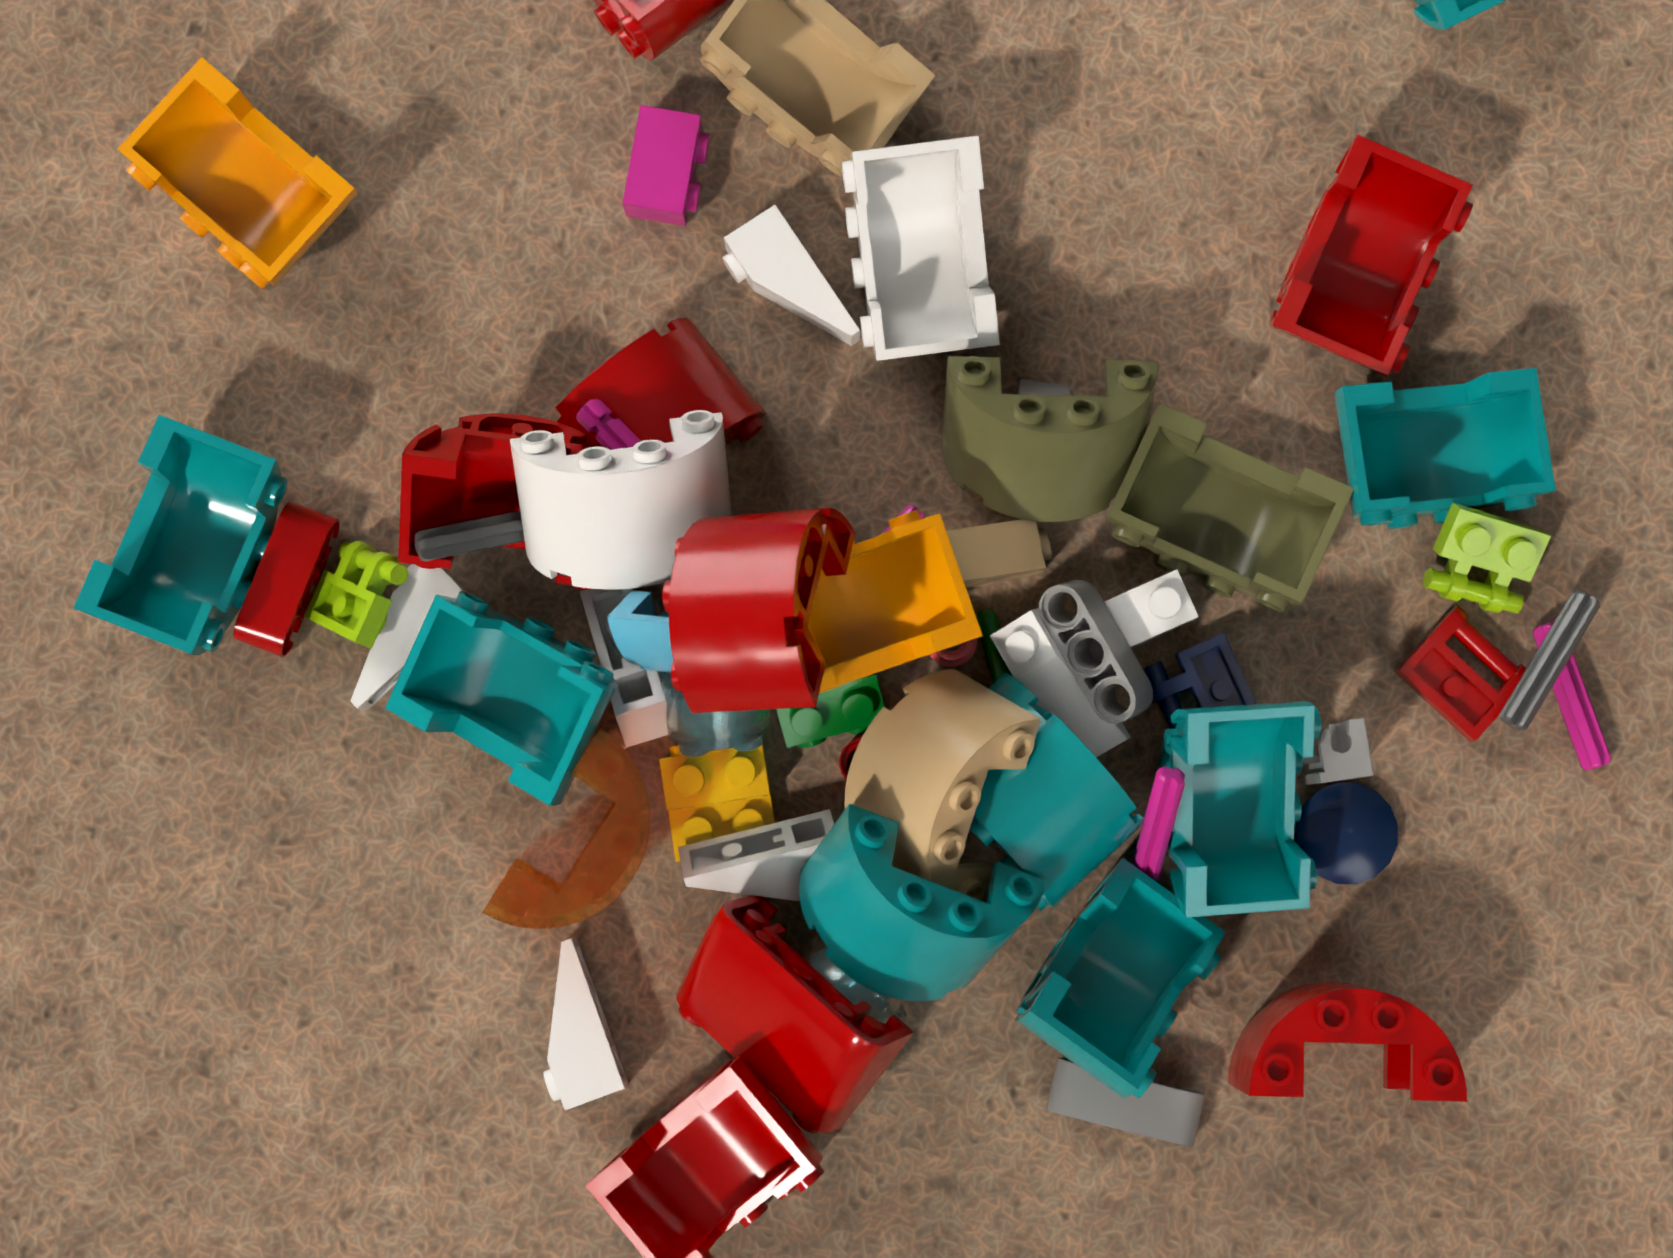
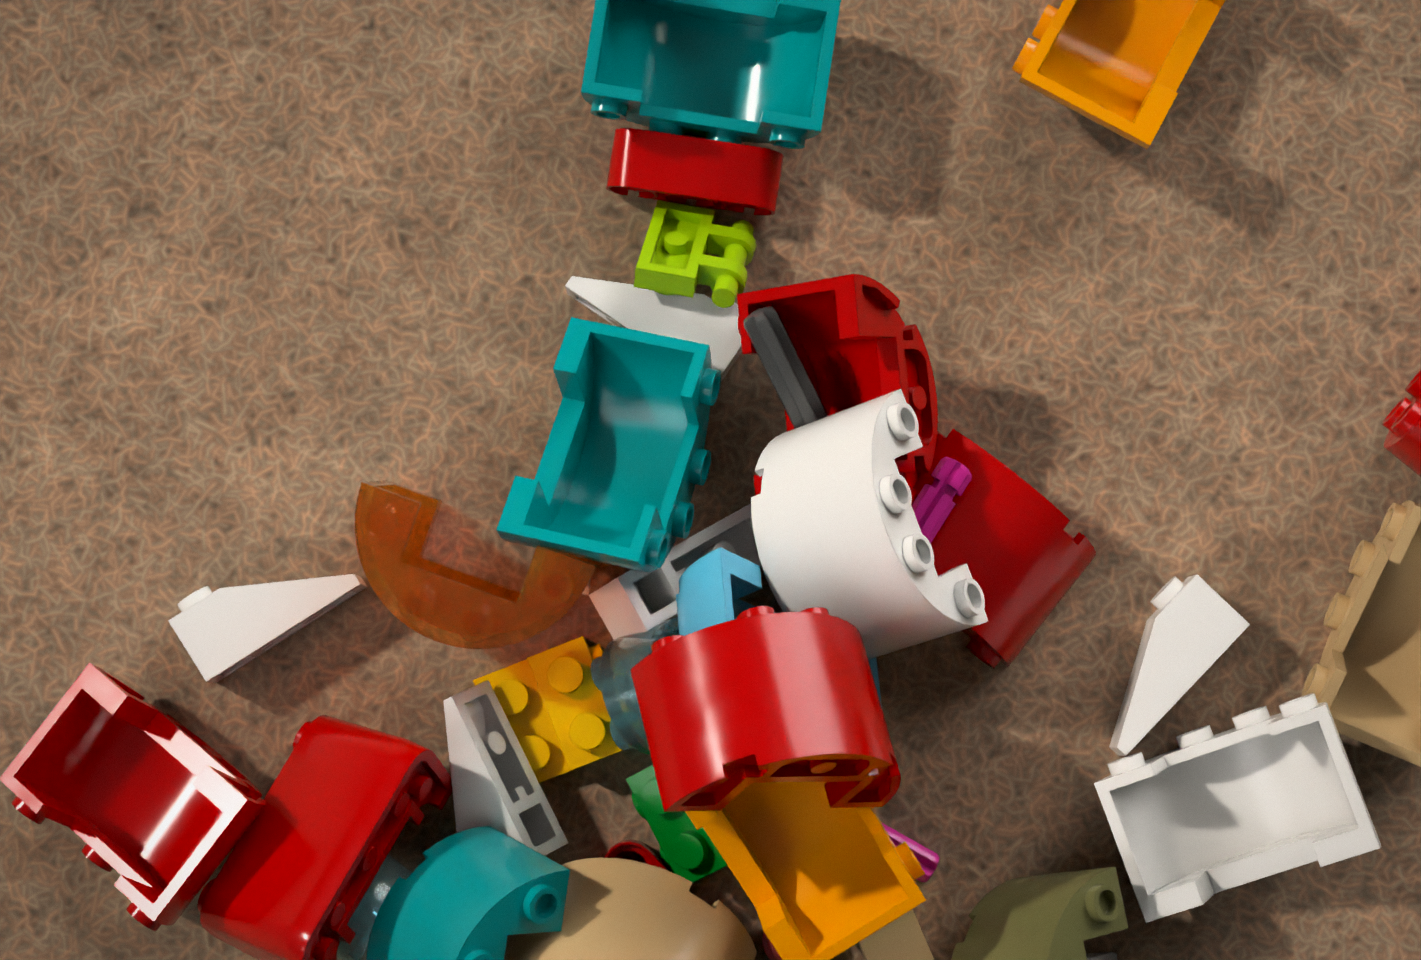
camera: 80 degrees right, 0 degrees up
(664, 166) = (1266, 486): dark pink brick -> none

